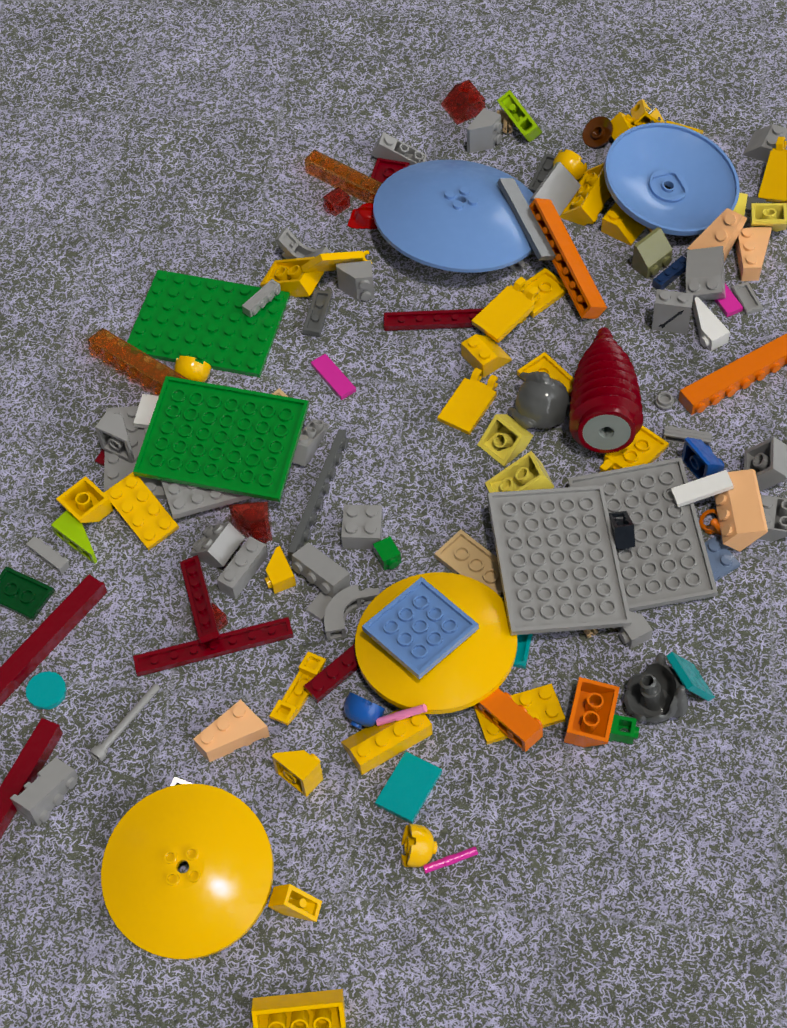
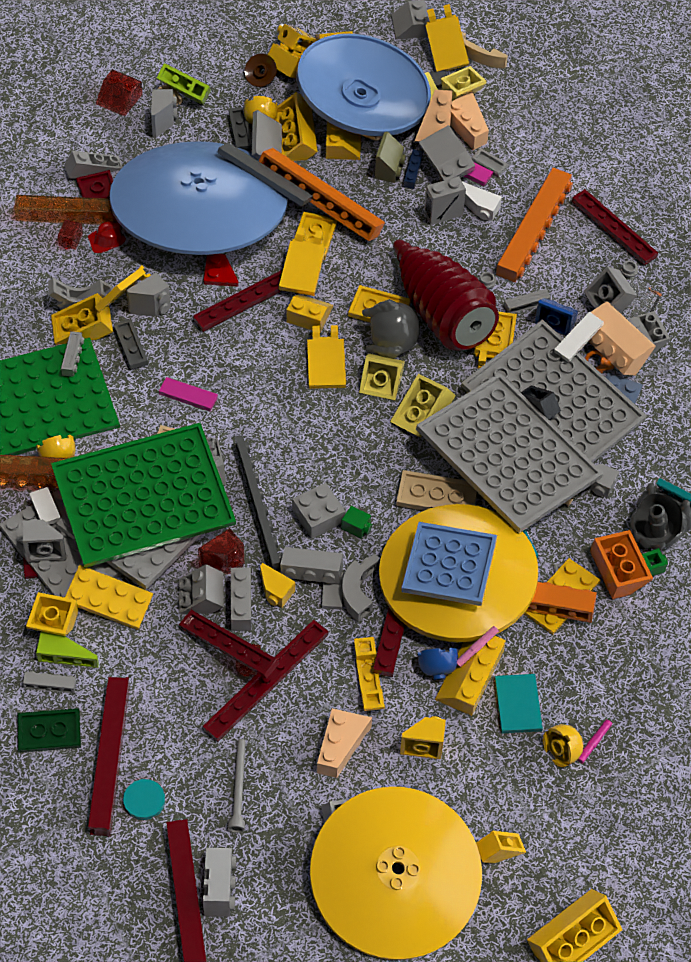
camera: 40 degrees left, 0 degrees up
(436, 286) = (219, 271): none -> red wing

